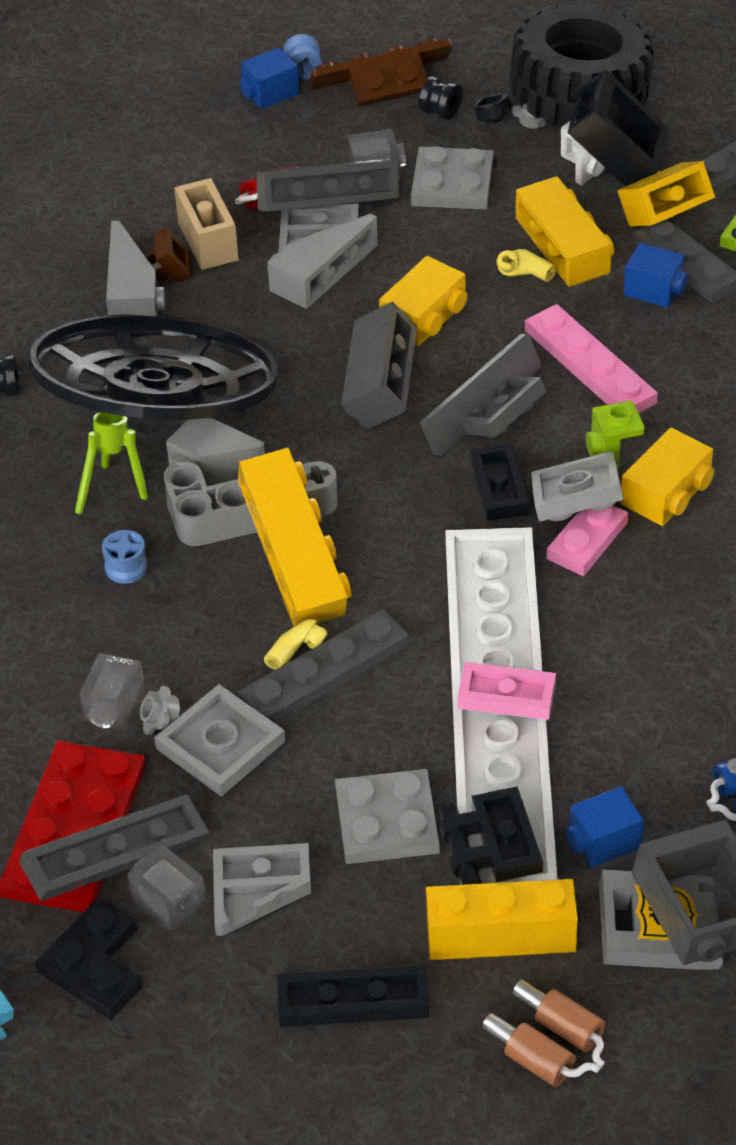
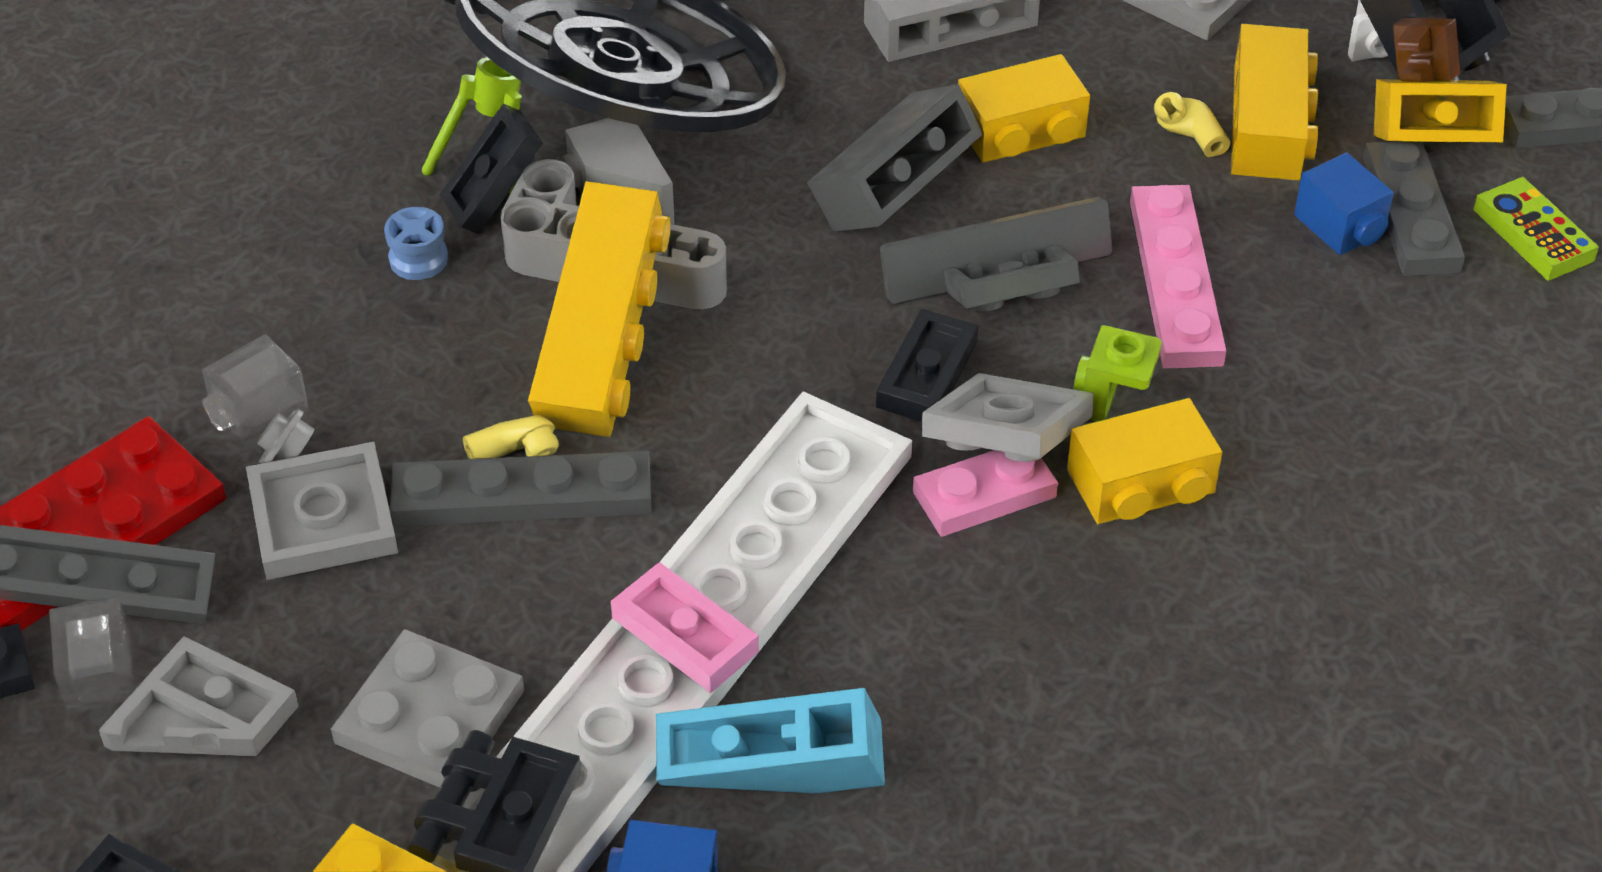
camera: 30 degrees right, 0 degrees up
(139, 487) = (491, 169): none -> black plate
(607, 728) = (774, 744): none -> medium azure slope
(640, 159) = (1426, 49): none -> reddish brown tile

